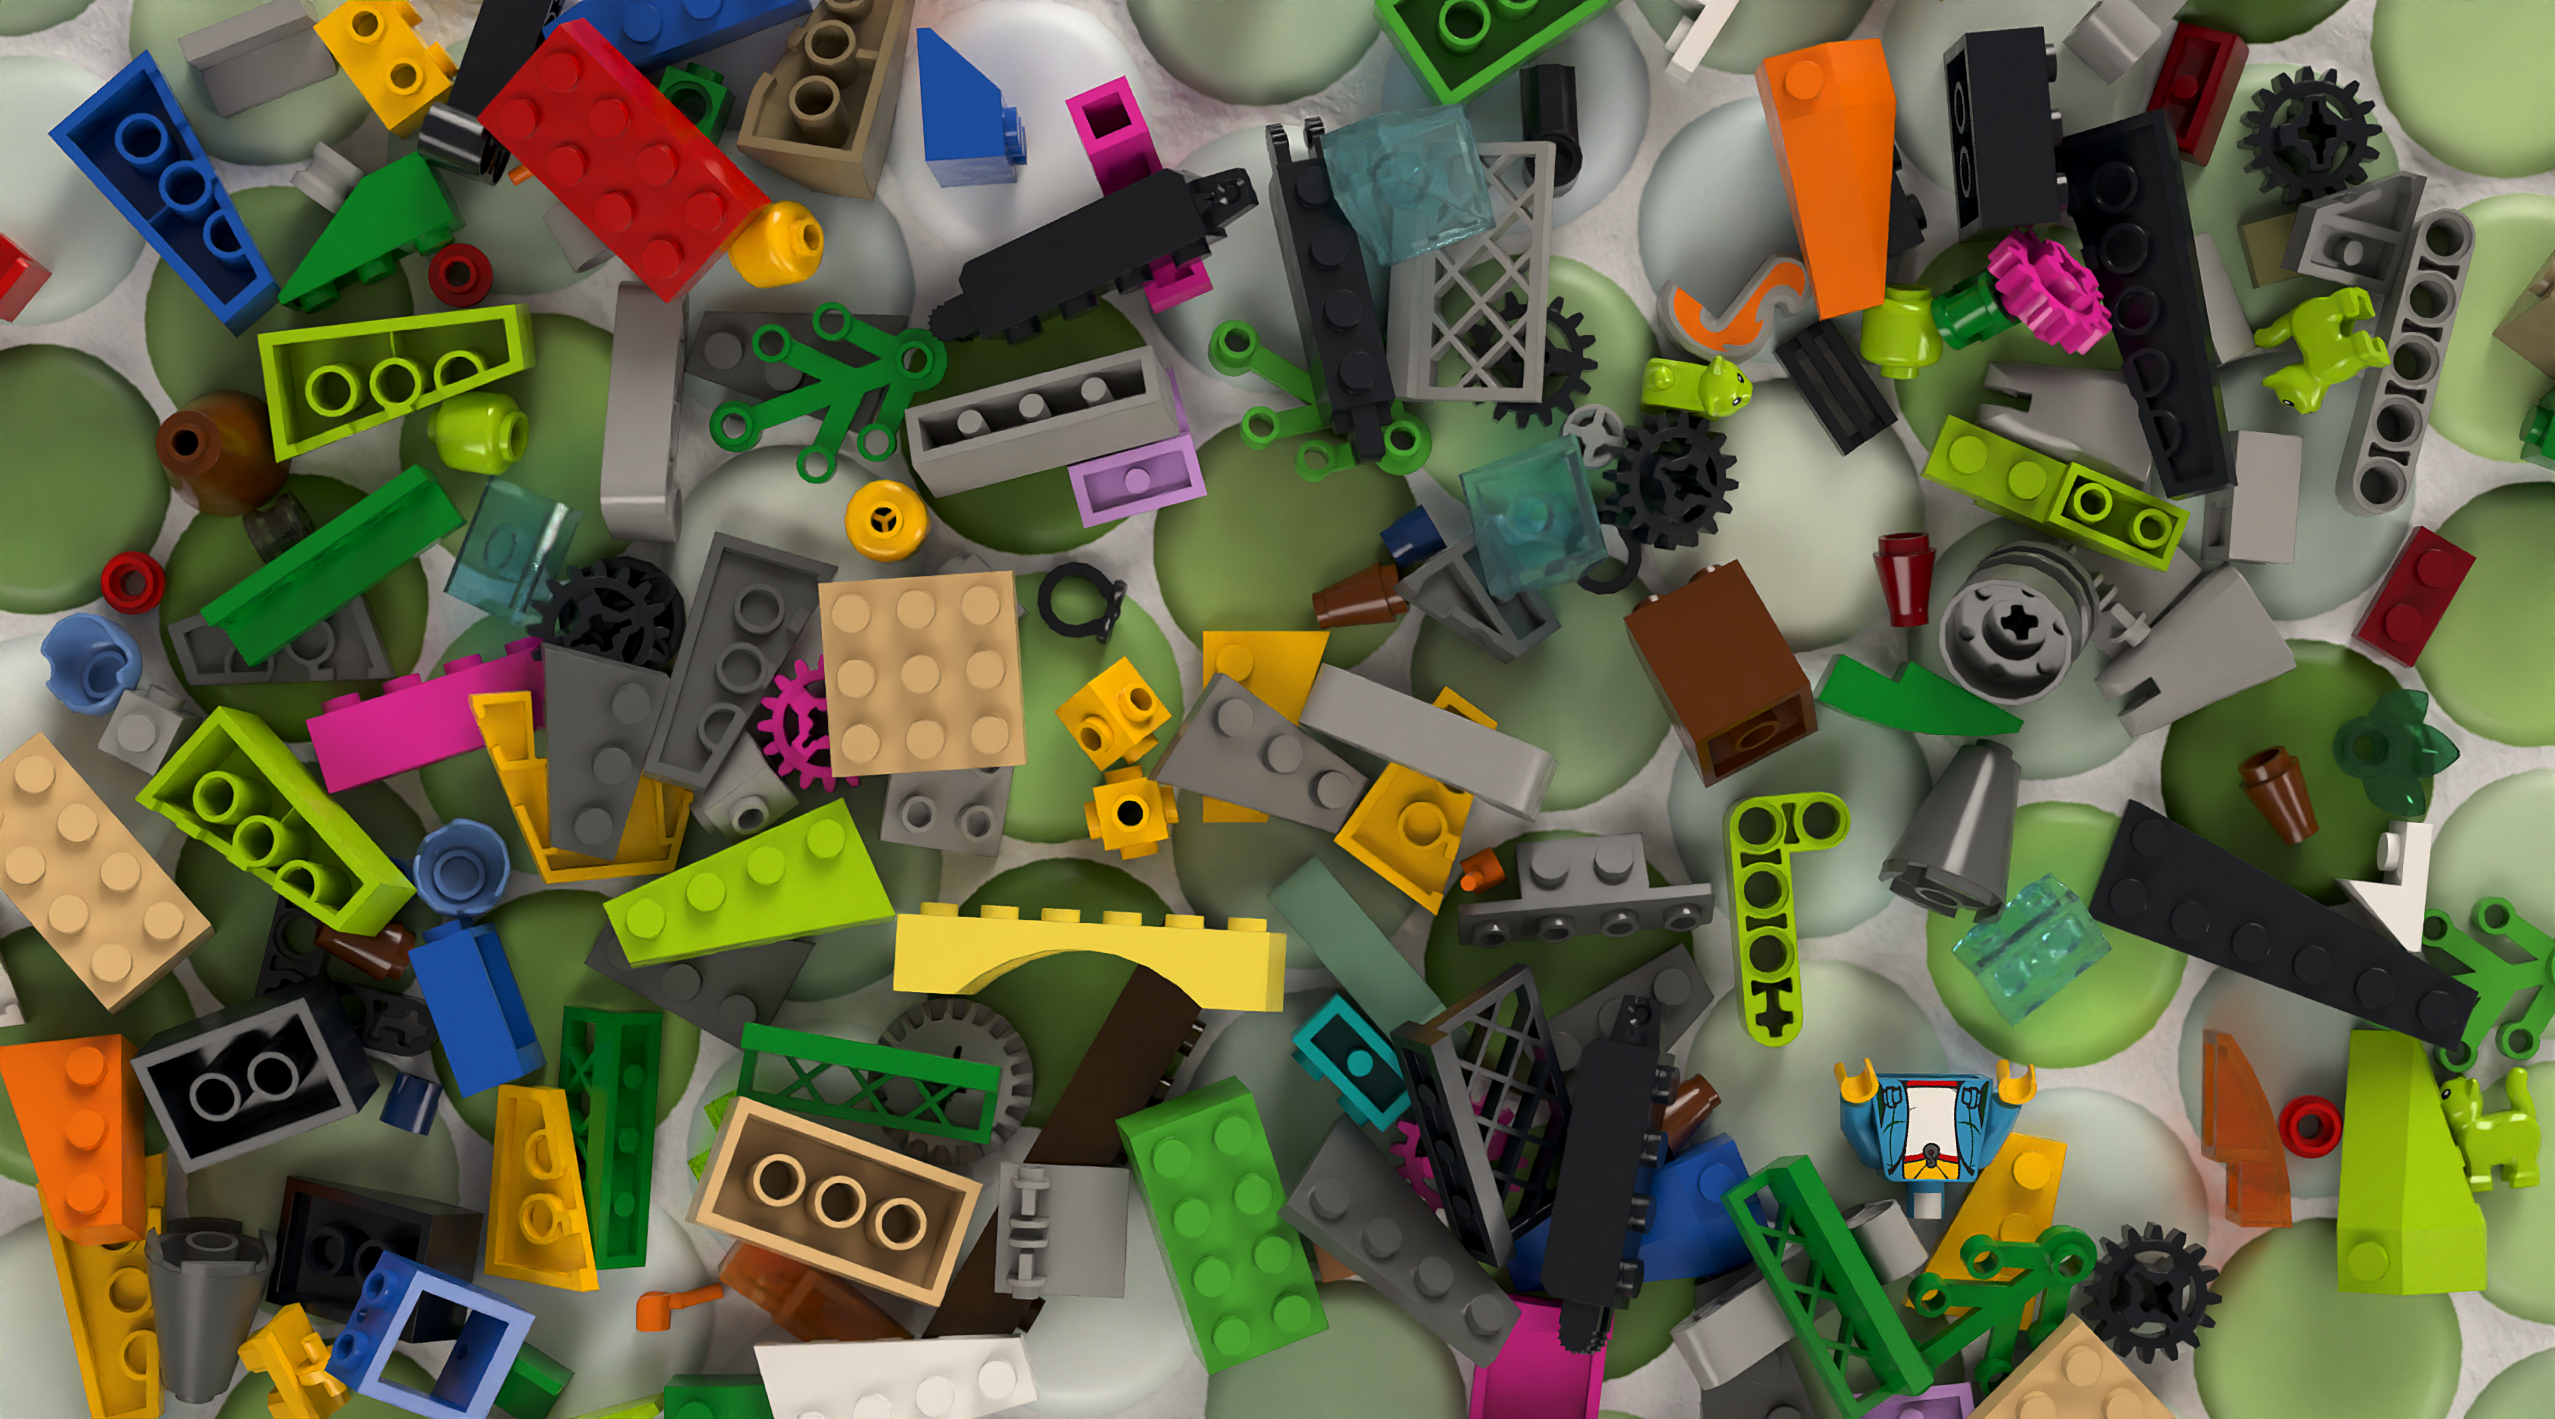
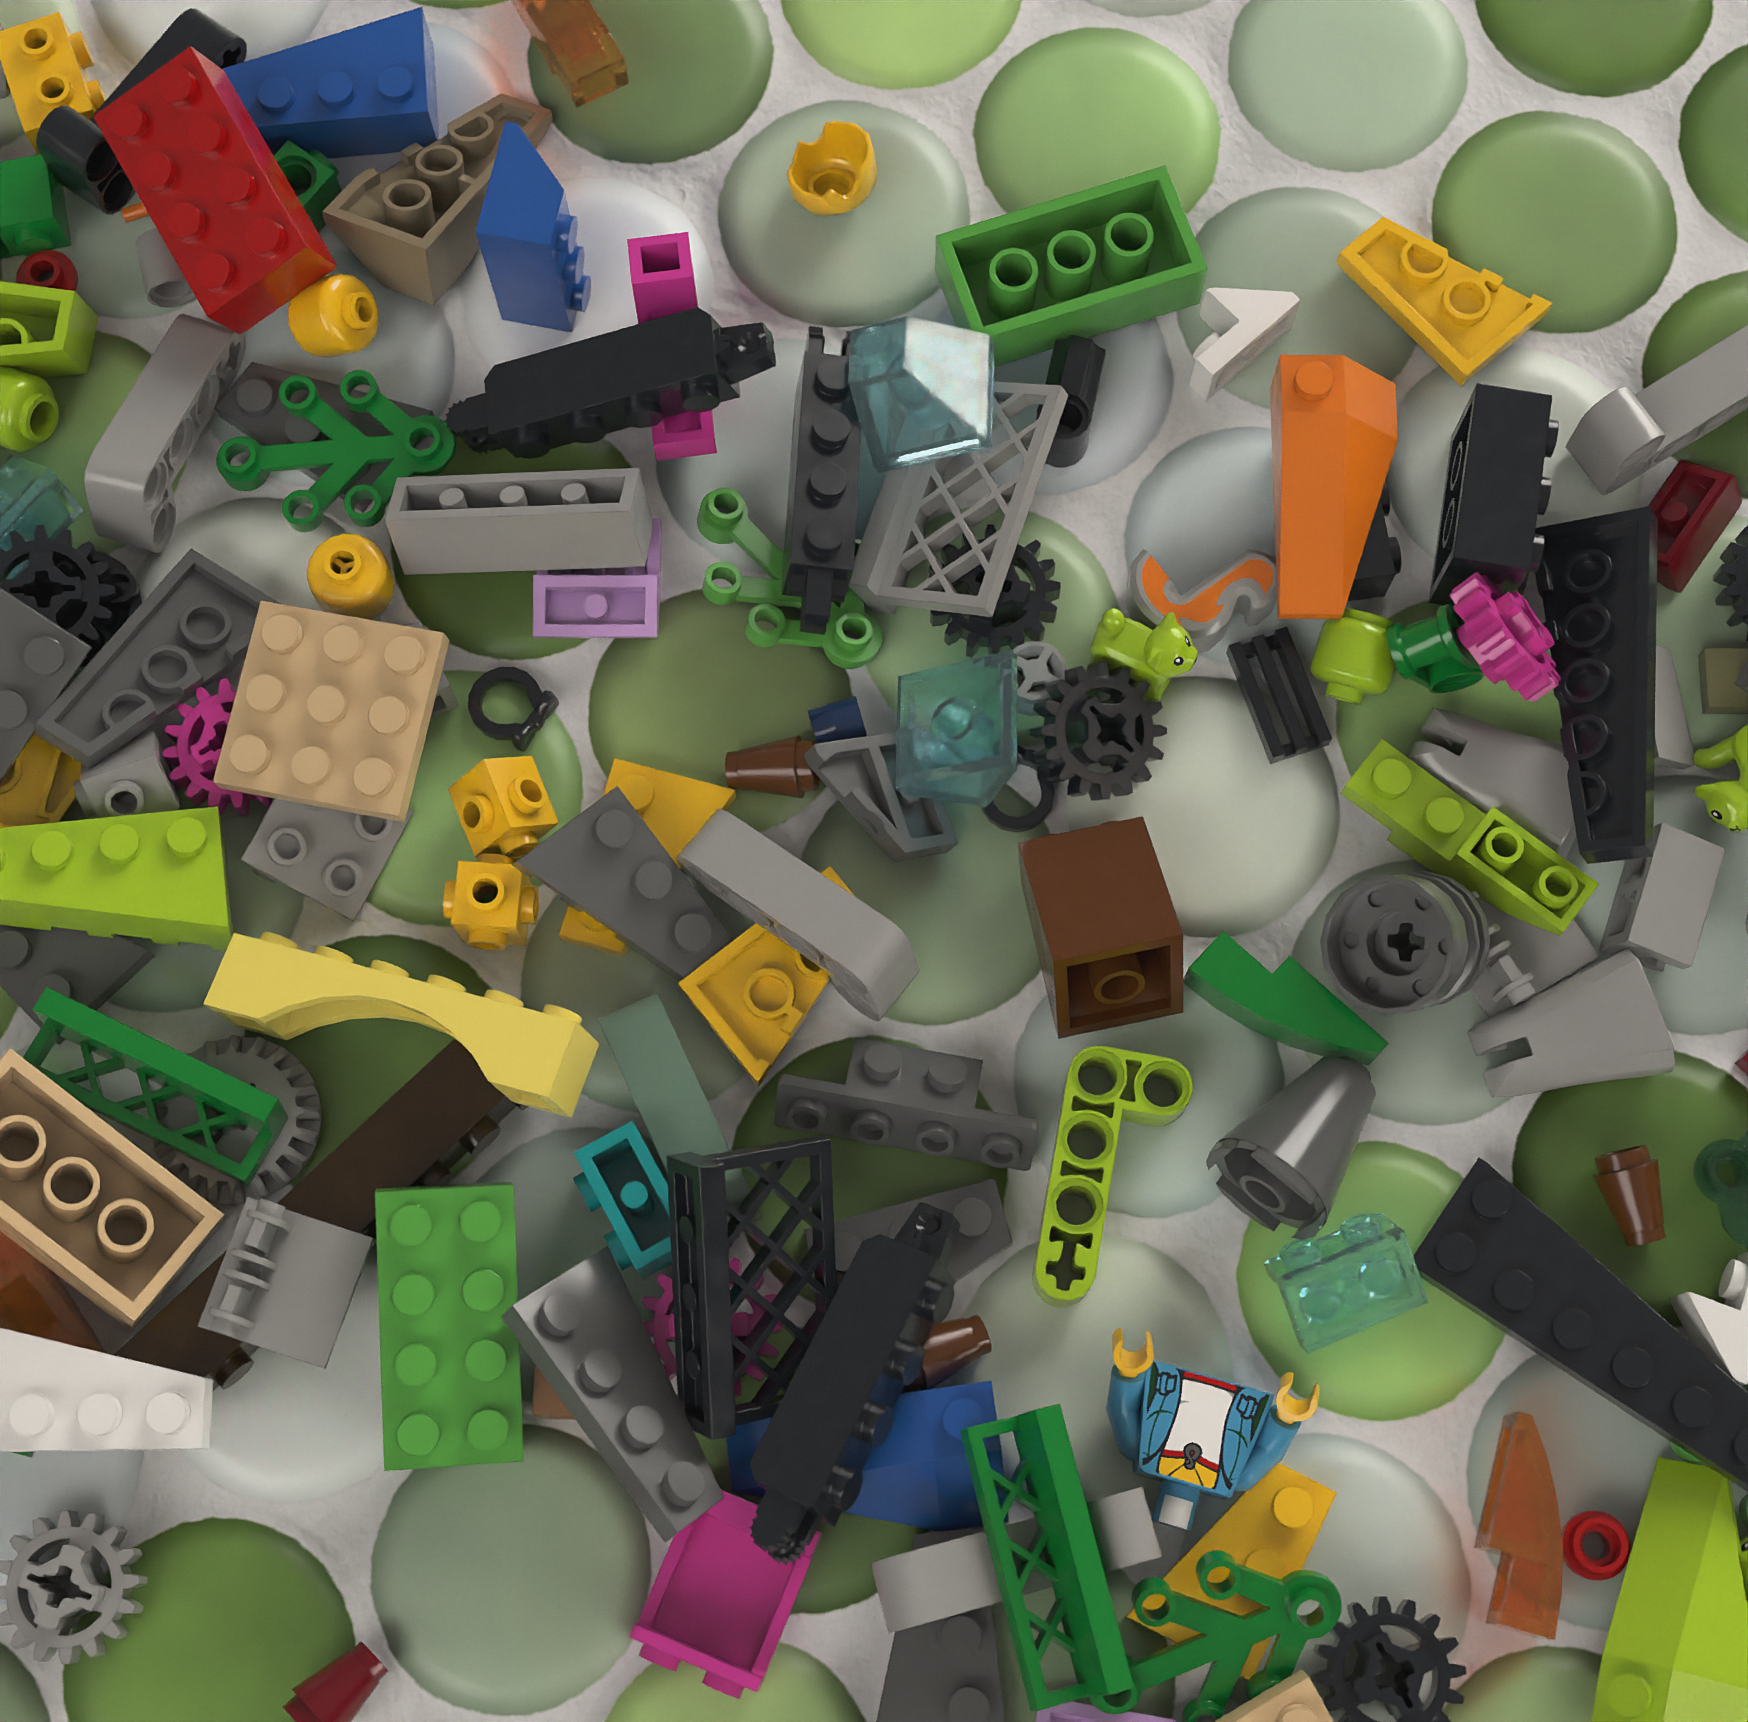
camera: 20 degrees right, 15 degrees down
(1482, 872) = (815, 1055): orange hand -> none
(1906, 575) = (1305, 881): dark red cone -> none

